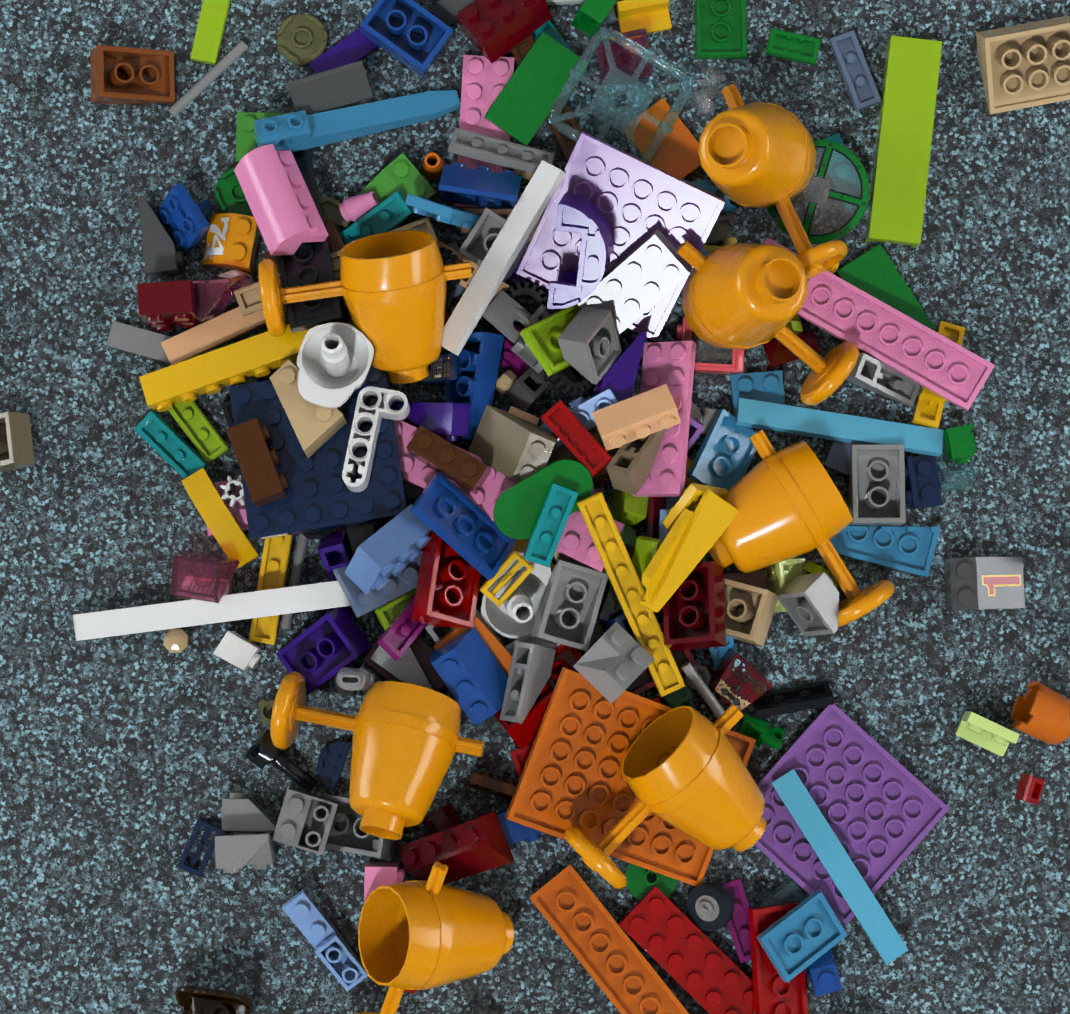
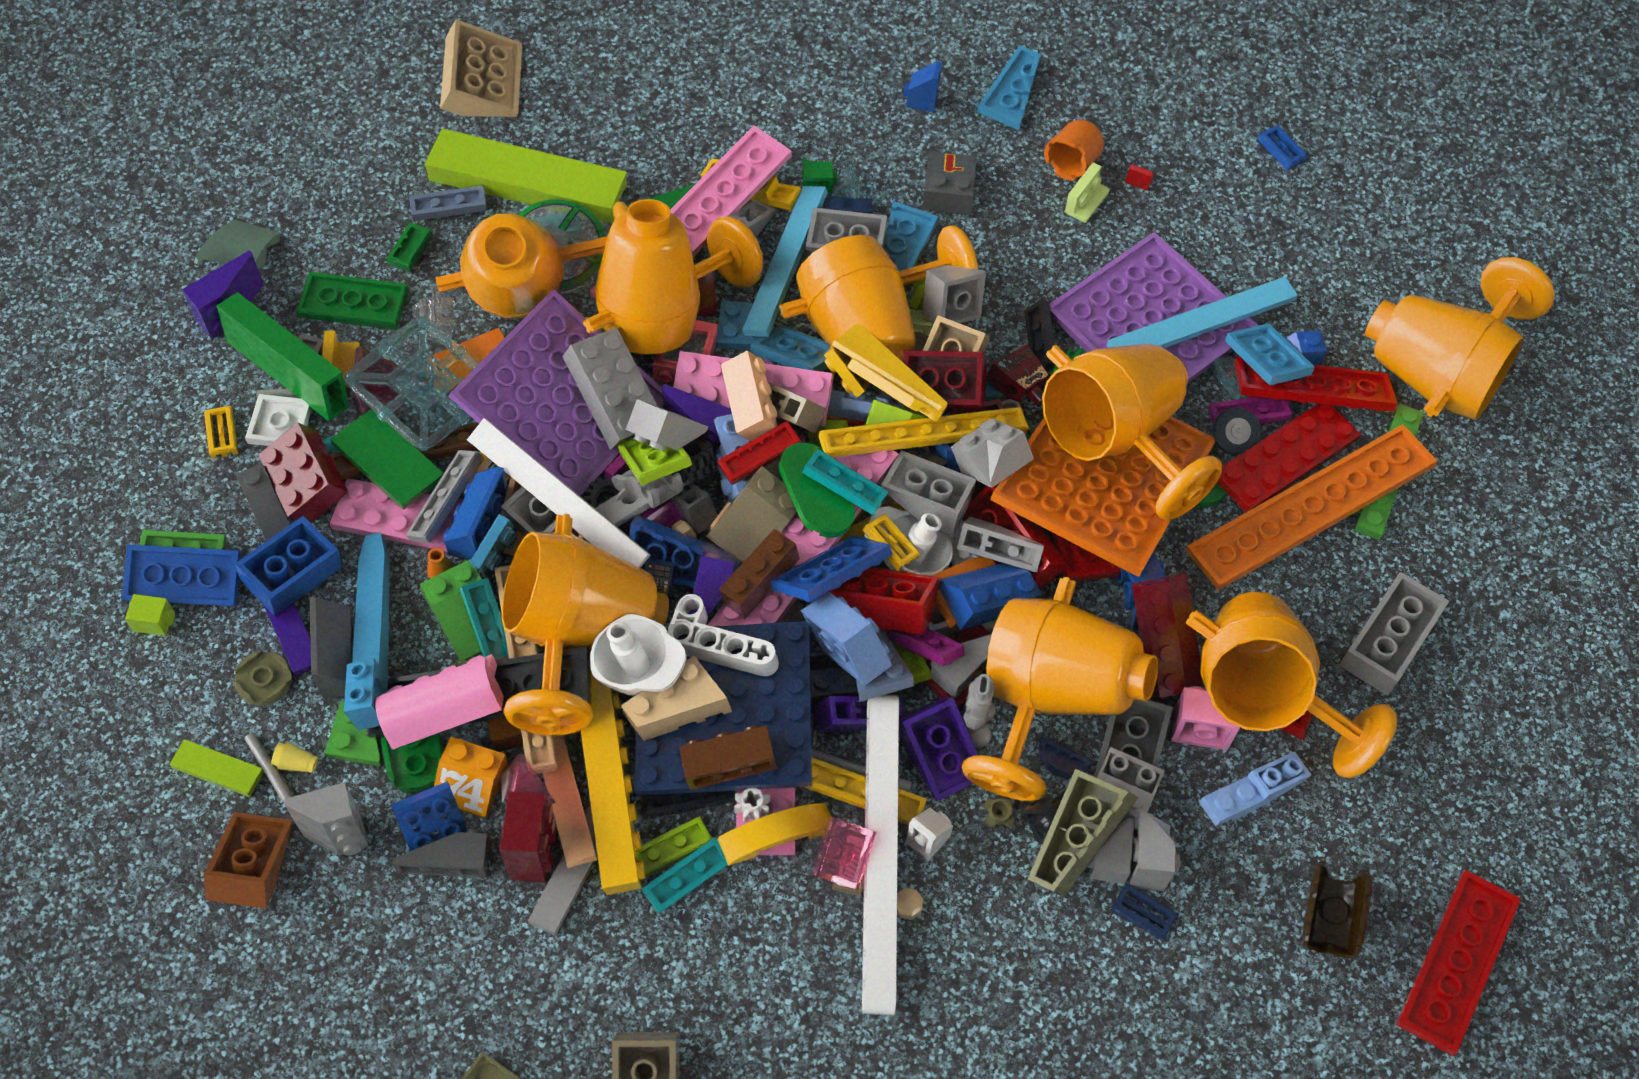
camera: 85 degrees left, 25 degrees down
(159, 137) = (330, 819): none -> light grey slope
(227, 87) = (293, 758): none -> light yellow cone
(253, 783) = (1079, 829): none -> olive wedge
(357, 206) = (464, 639): bright pink cone -> none
(484, 782) = (1105, 596): reddish brown plate -> none
(581, 216) = (580, 405): cylinder -> none
(702, 688) = (1020, 398): light grey bar -> none

